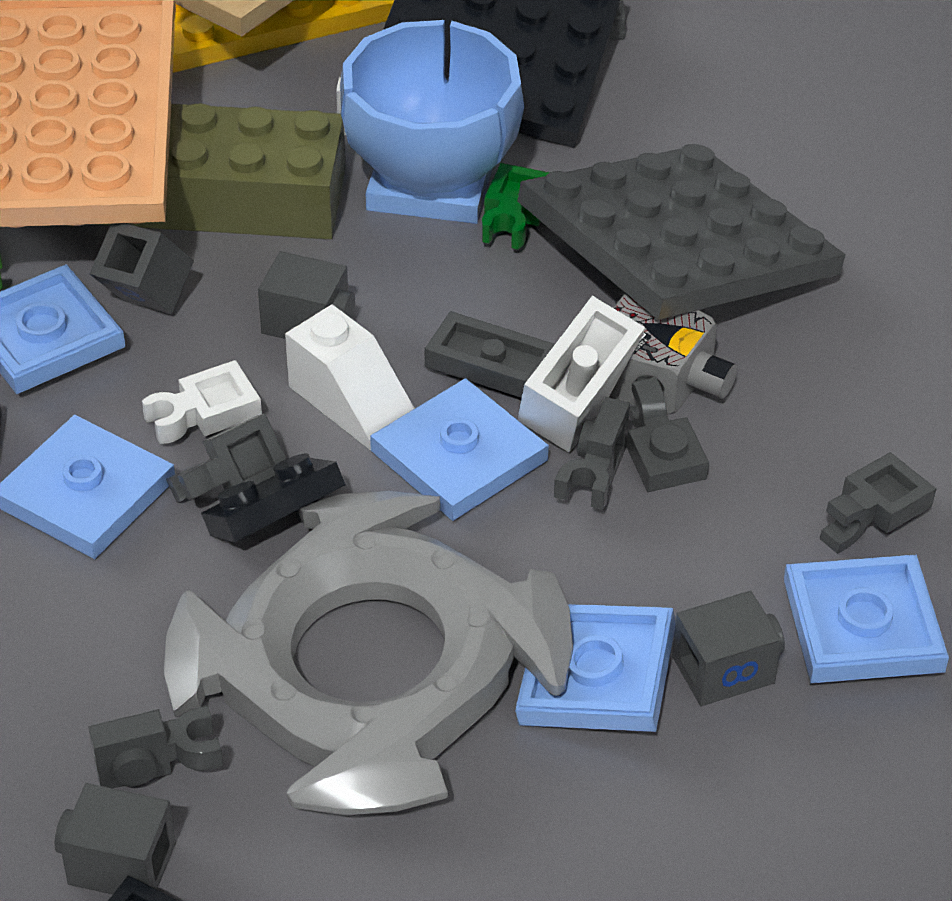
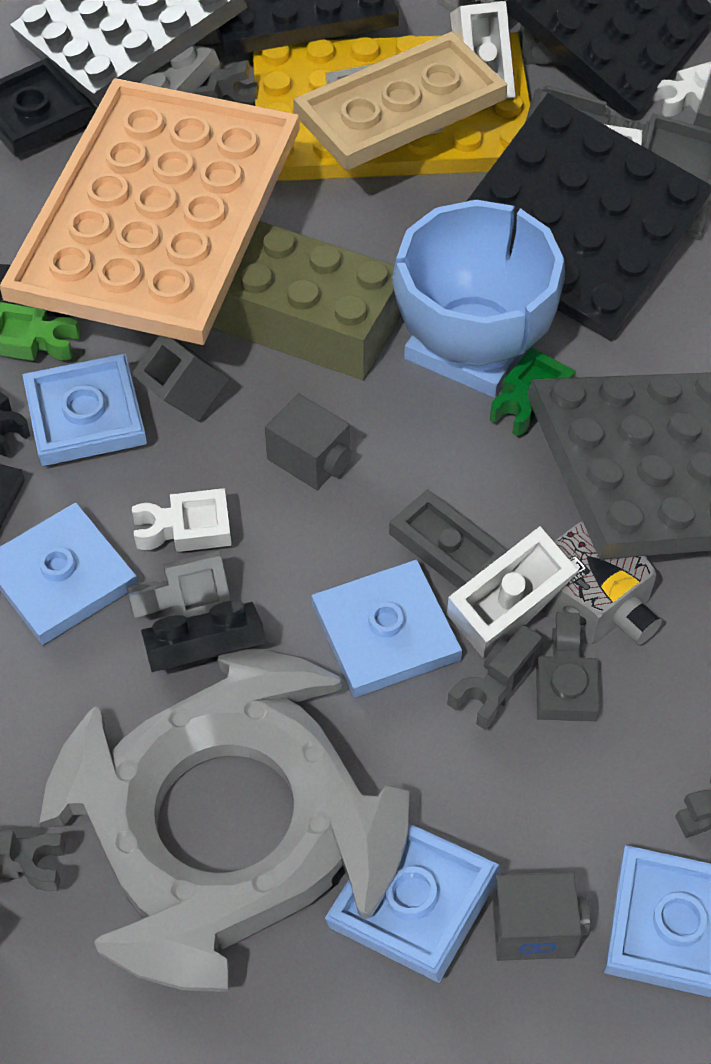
camera: 20 degrees right, 10 degrees up
(344, 374) = (312, 529): white slope -> none

